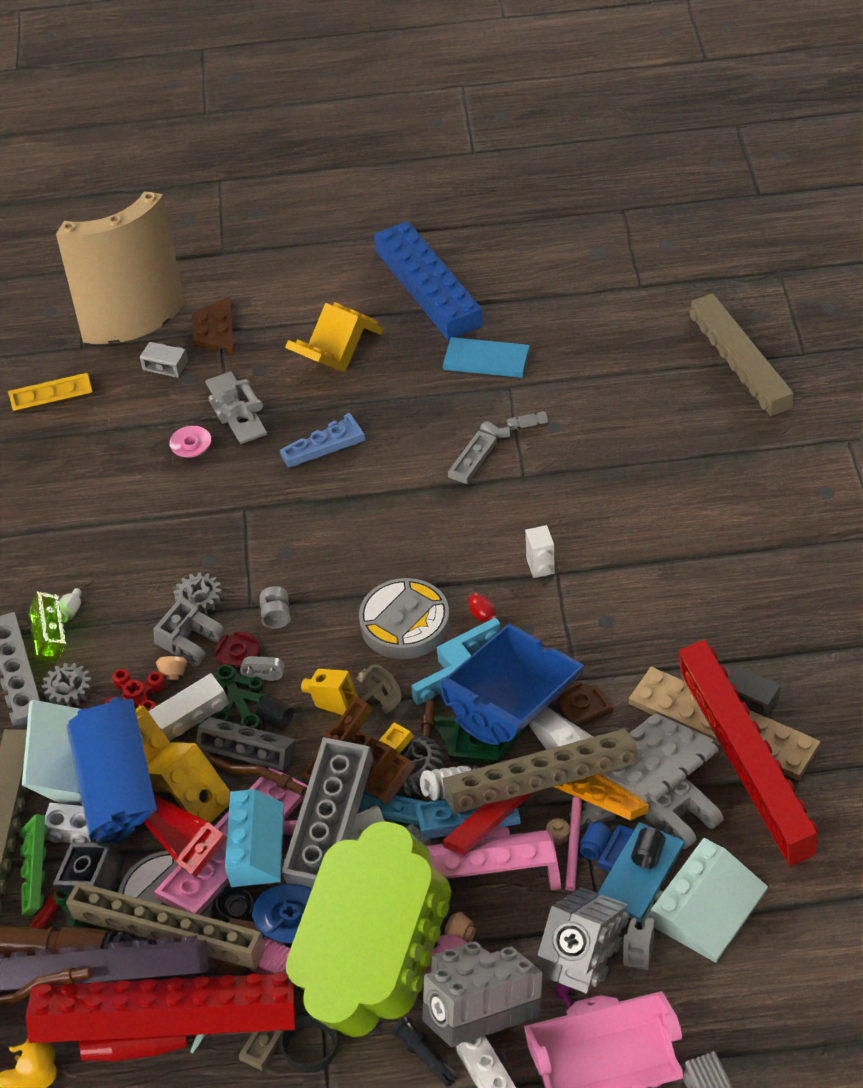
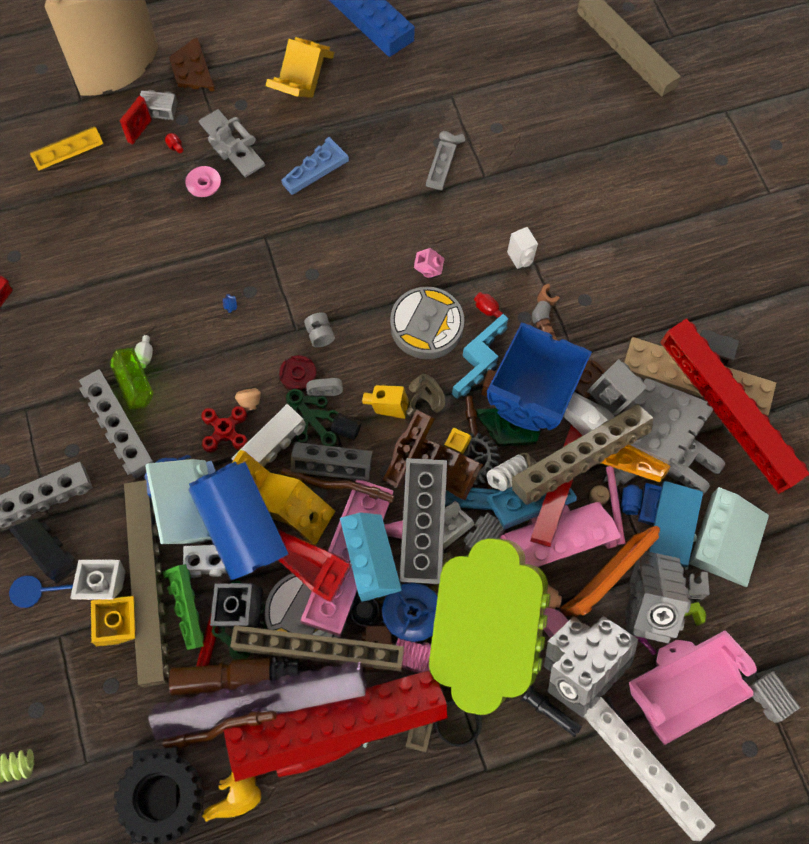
camera: 20 degrees left, 20 degrees up
(67, 685) = (168, 422): light grey gear -> none
(133, 370) = (135, 120): none -> red plate
(170, 399) = (174, 142): none -> red cylinder
(178, 624) = (243, 359): light grey brick -> none
(181, 568) = (229, 303): none -> blue plate
(198, 591) = (253, 332): light grey gear -> none
(424, 554) = (429, 263): none -> bright pink brick
(486, 357) = (426, 70): dark azure tile -> none
(490, 930) = (610, 573): none -> orange animal
(527, 420) = (475, 125): light grey axle -> none
(544, 626) = (541, 313): none -> piece
(603, 705) = (616, 388): none -> light grey brick
(629, 971) = (698, 613): none -> lime bracket
(648, 848) = (682, 506): black piece -> none

